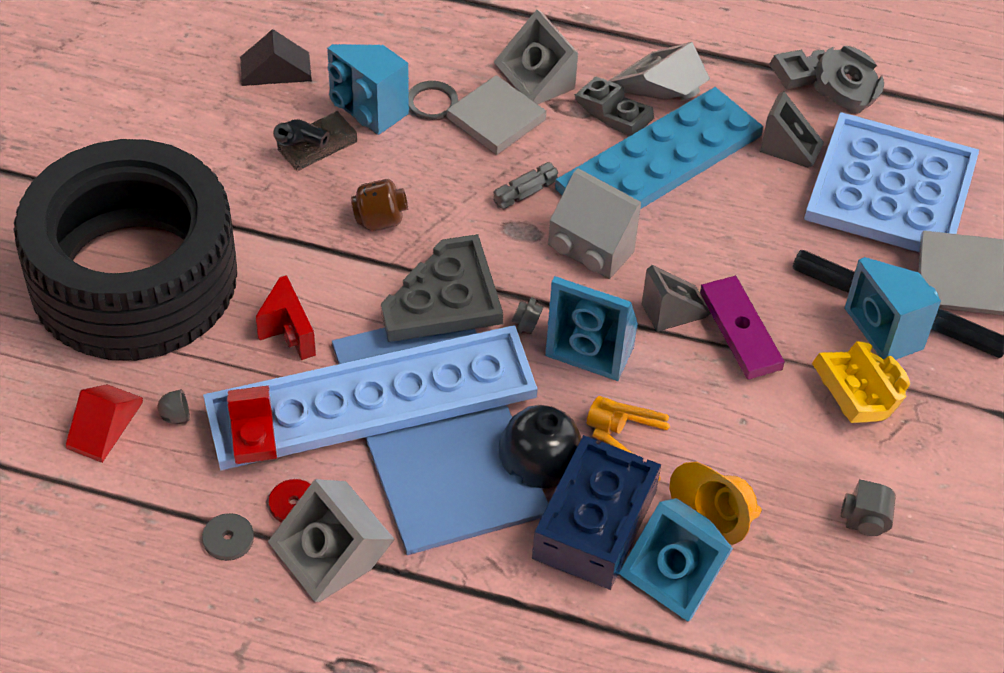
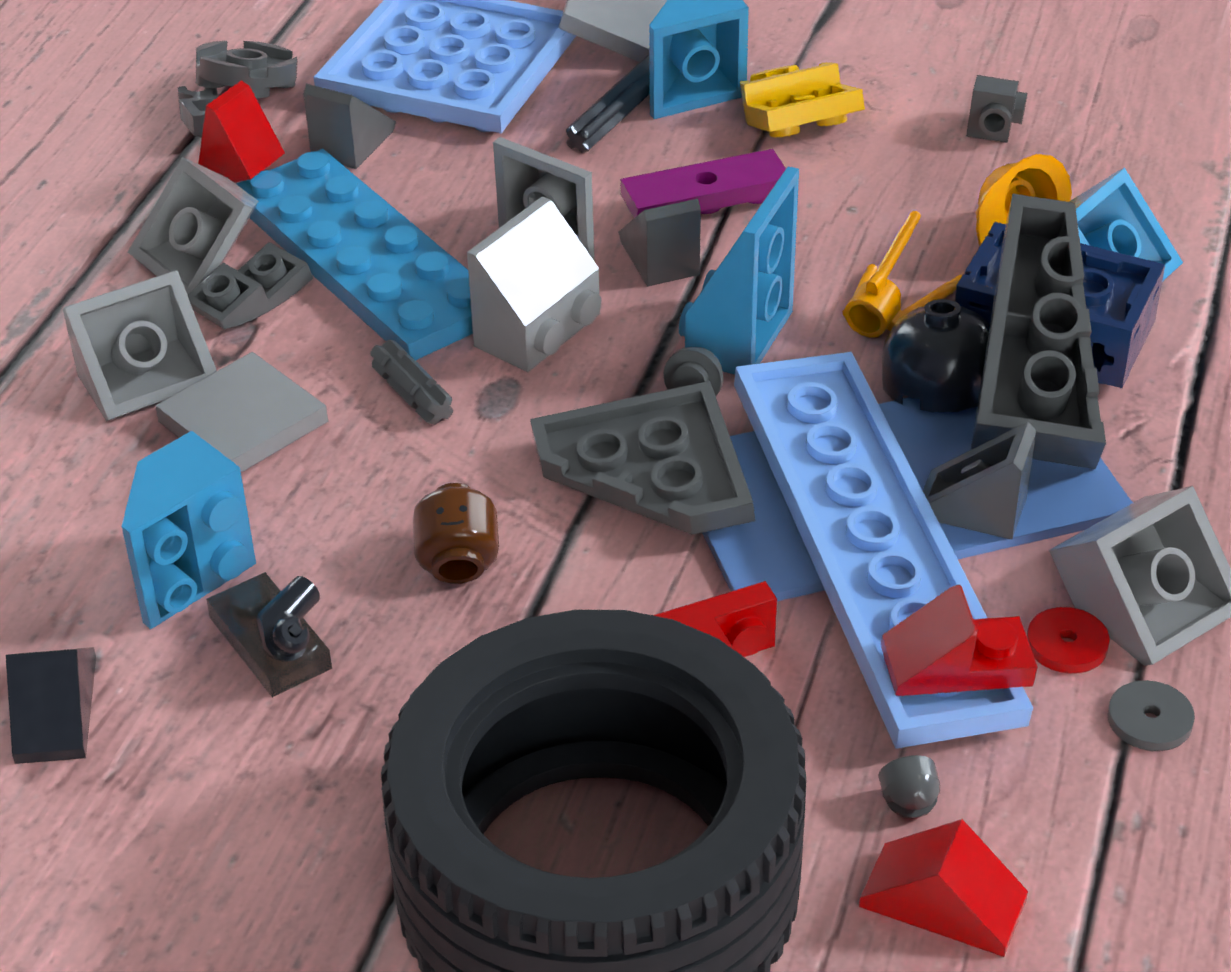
camera: 85 degrees left, 10 degrees down
(406, 456) = (985, 485): none -> dark grey slope
(510, 467) = (1040, 341): none -> dark grey wedge
(698, 232) = (528, 175): none -> light grey slope
(740, 73) = (237, 136): none -> red slope

